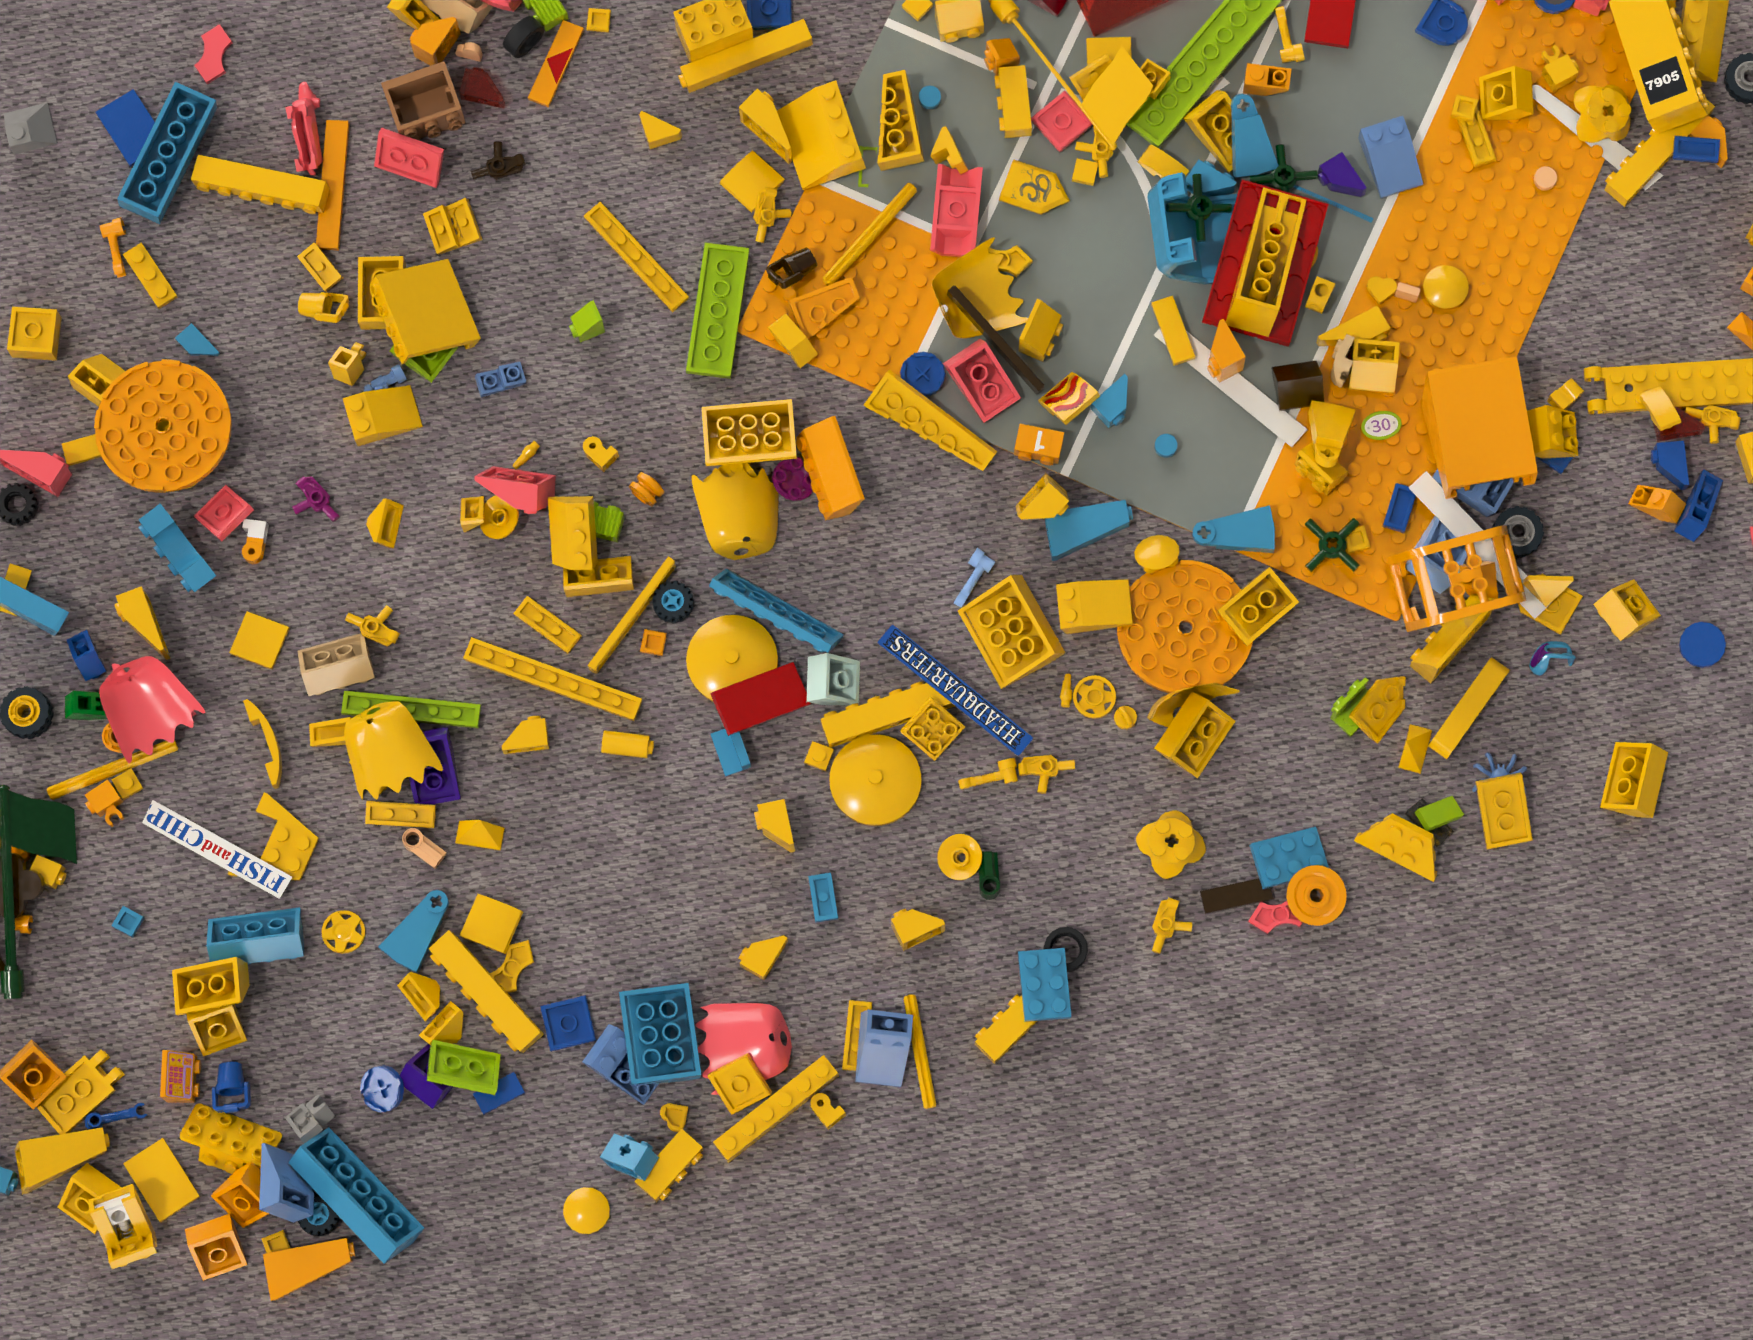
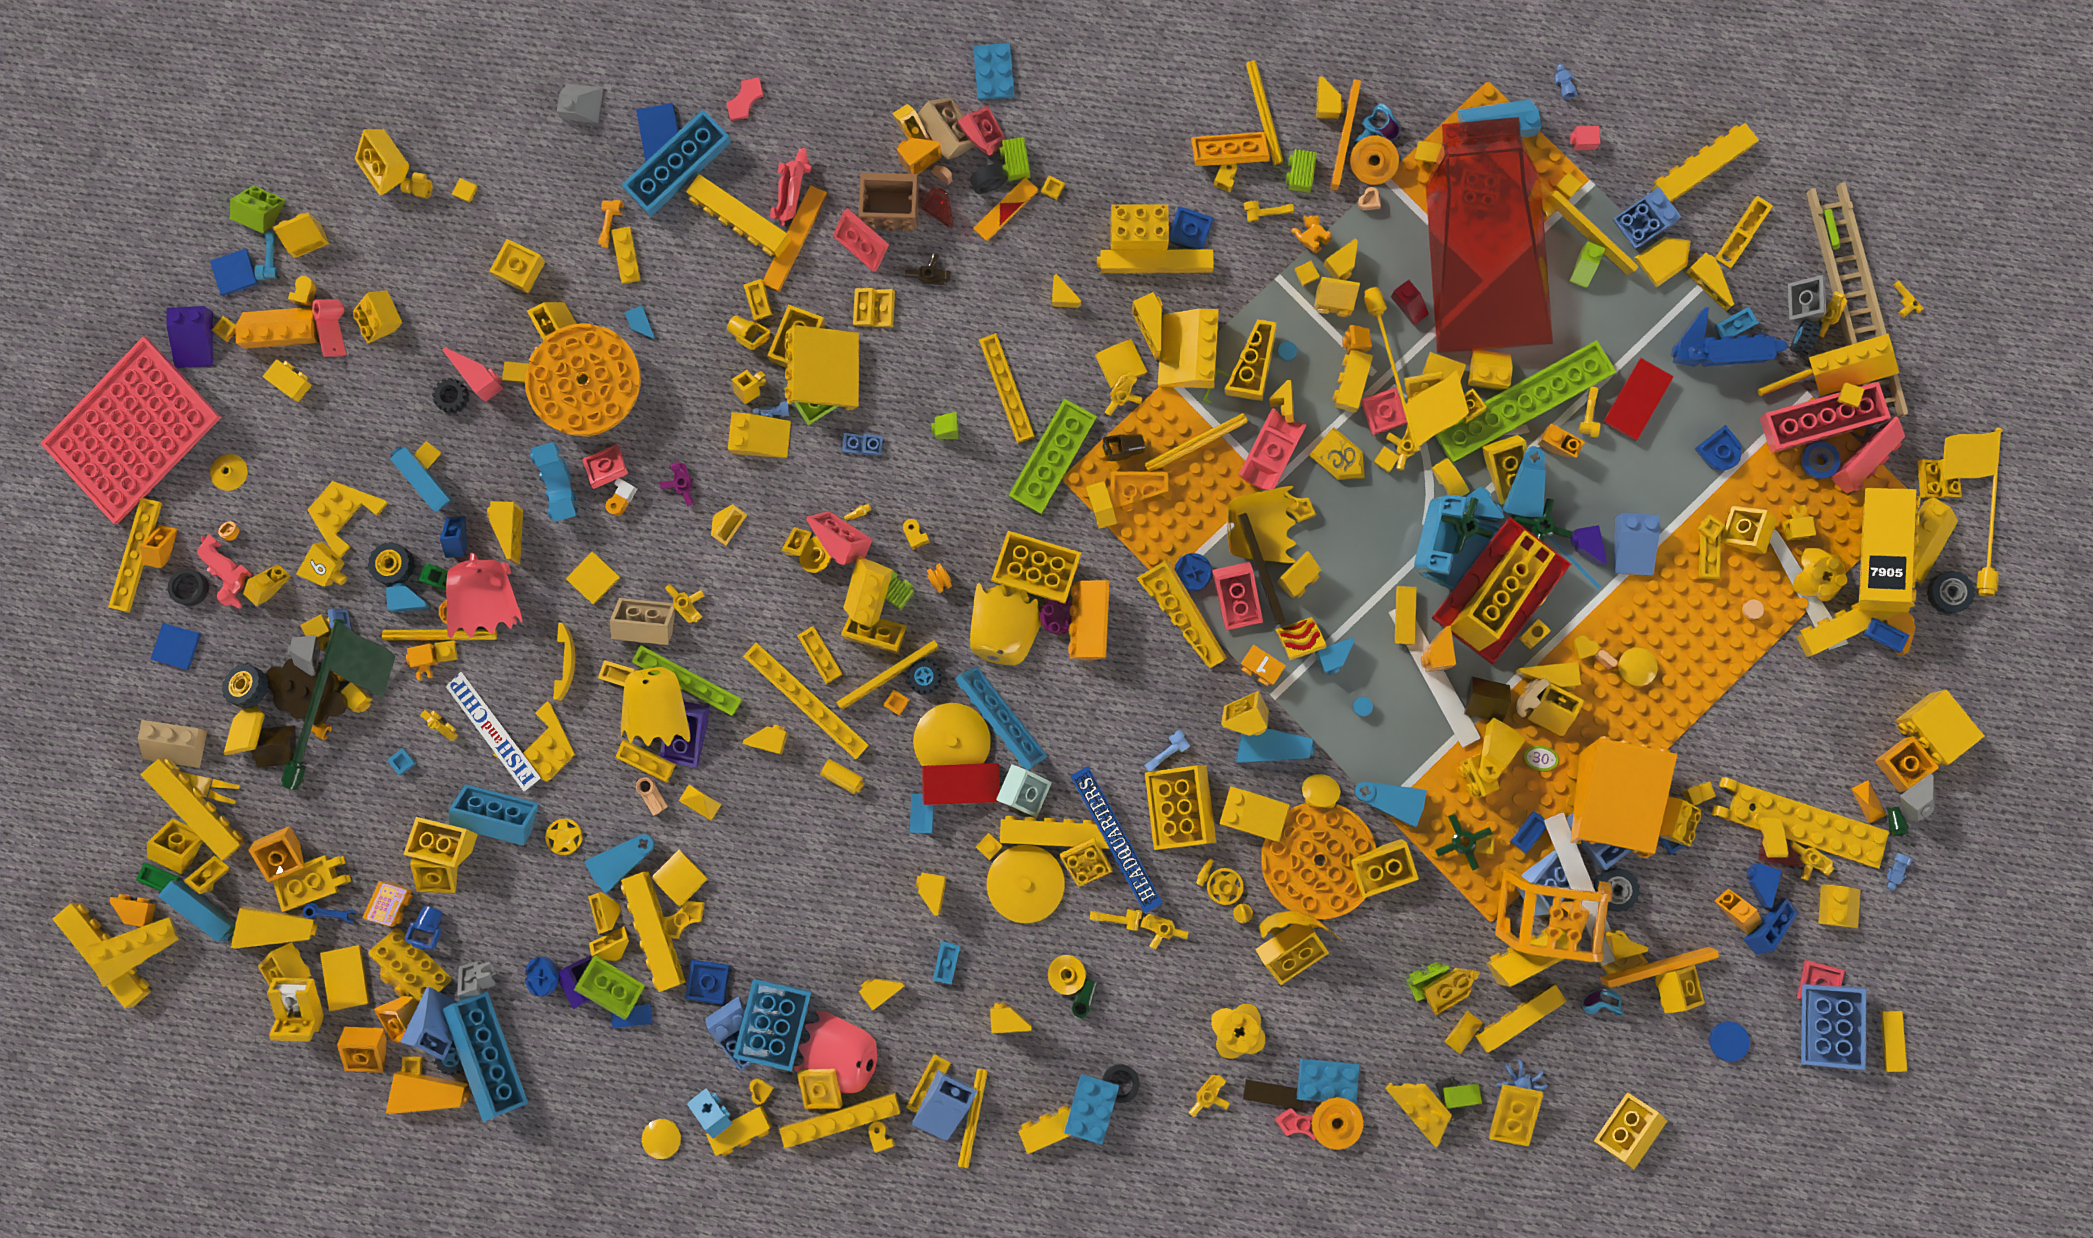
camera: 20 degrees right, 5 degrees up
(58, 744) = (403, 598): none -> dark azure slope
(146, 861) = (434, 722): none -> yellow plate
(1159, 33) = (1490, 370): none -> yellow slope
(1595, 594) = (1659, 967): none -> light orange tile

